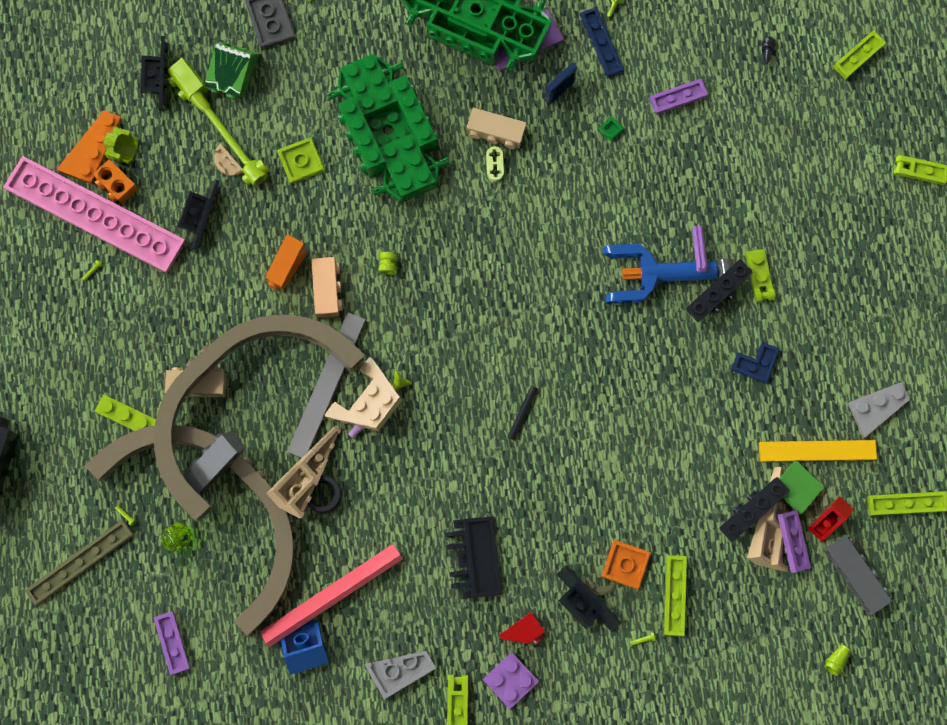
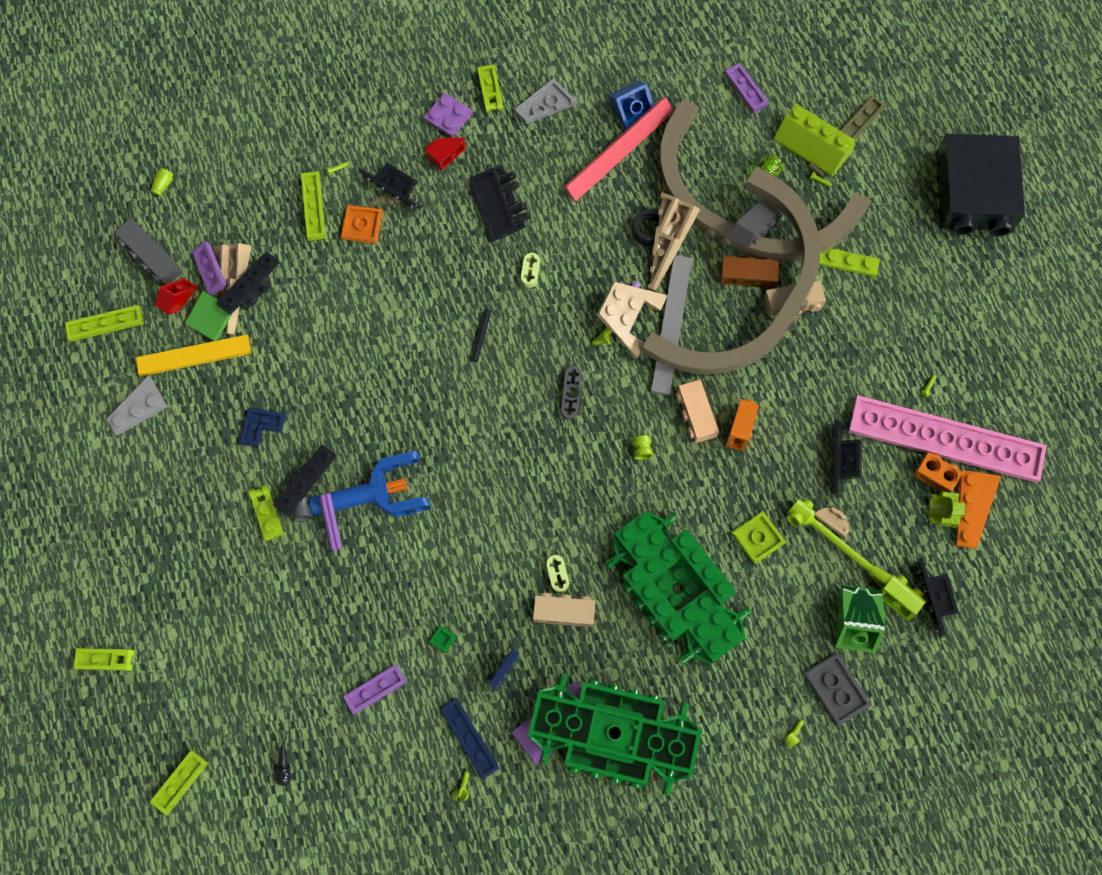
camera: 170 degrees right, 5 degrees down
(119, 557) = (814, 140): none -> lime slope
(228, 419) = (749, 272): none -> dark orange brick
(453, 321) = (575, 406): none -> dark grey beam
(453, 471) = (526, 270): none -> yellowish green beam

